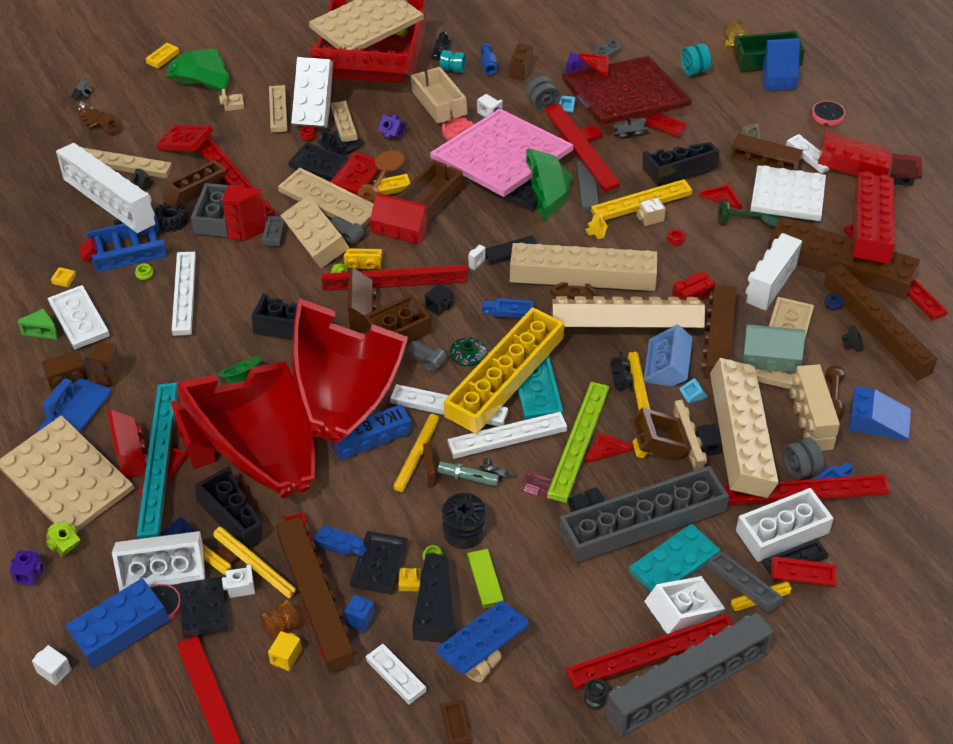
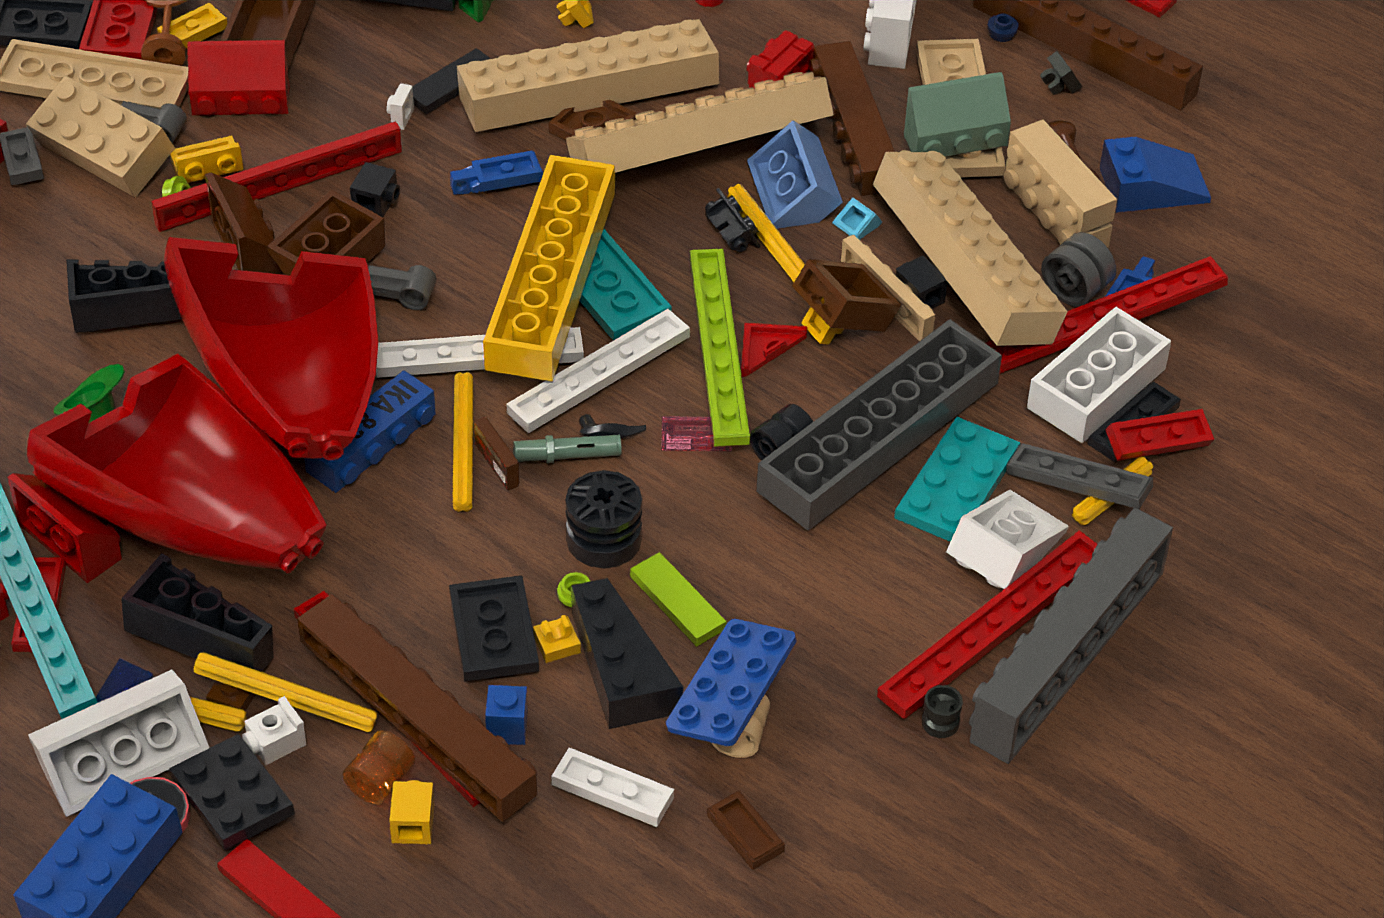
camera: 25 degrees left, 0 degrees up
(339, 541) = (413, 615): blue hinge -> none
(468, 351) = (462, 261): dark green dish -> none

